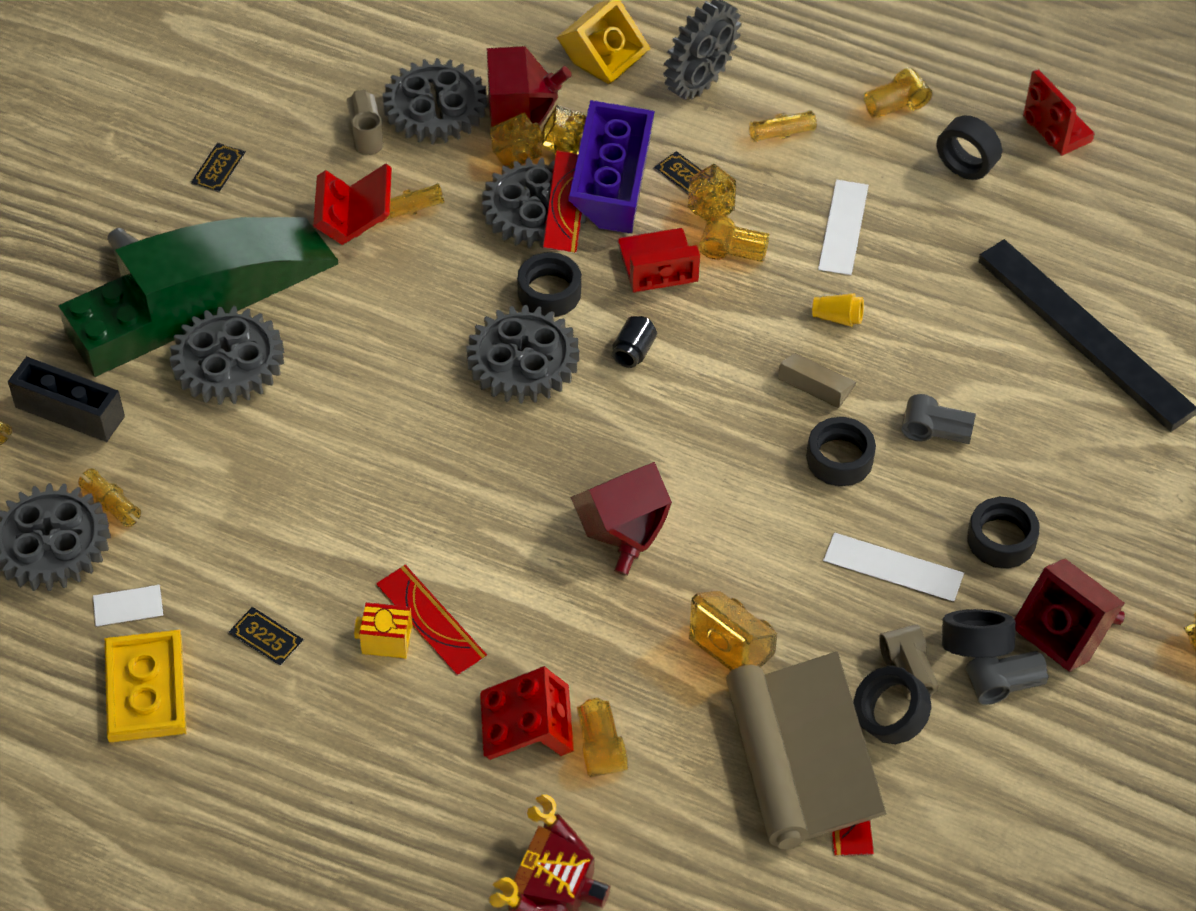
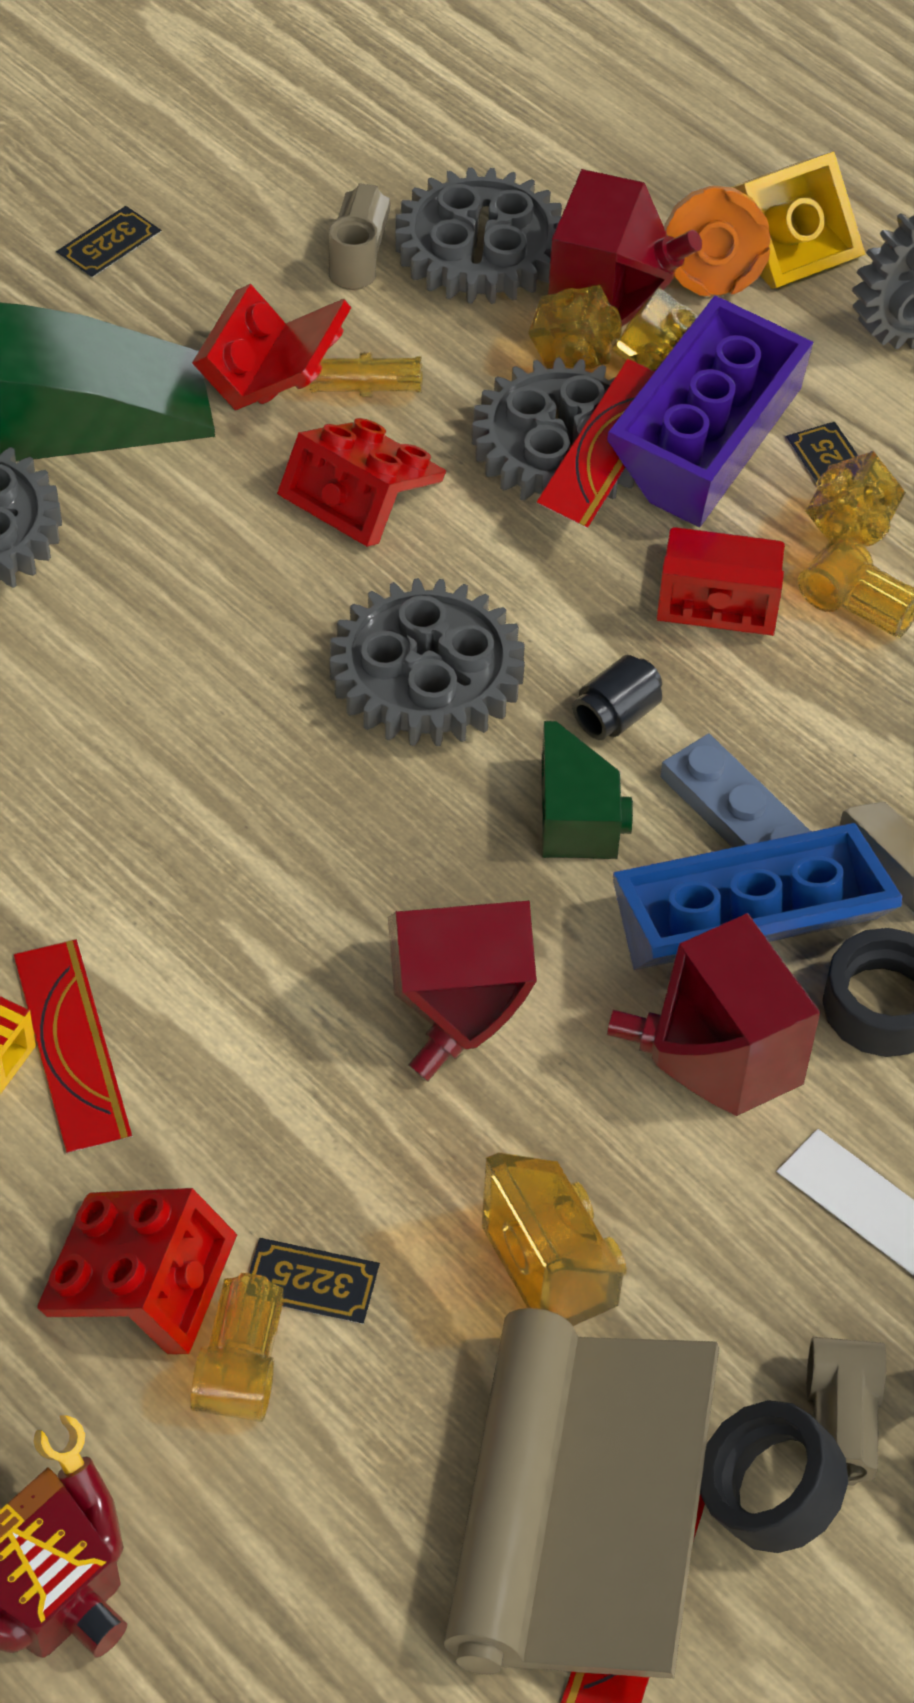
camera: 20 degrees right, 0 degrees up
(433, 263) = (353, 476): none -> red bracket
(549, 265) = (525, 533): black tyre -> none
(581, 58) = (732, 237): none -> orange tile
(622, 692) = (317, 1279): none -> black sticker
(638, 401) = (580, 799): none -> dark green slope
(726, 382) = (728, 795): none -> sand blue plate
(752, 423) = (782, 883): none -> blue slope
(773, 490) = (730, 1020): none -> dark red piece

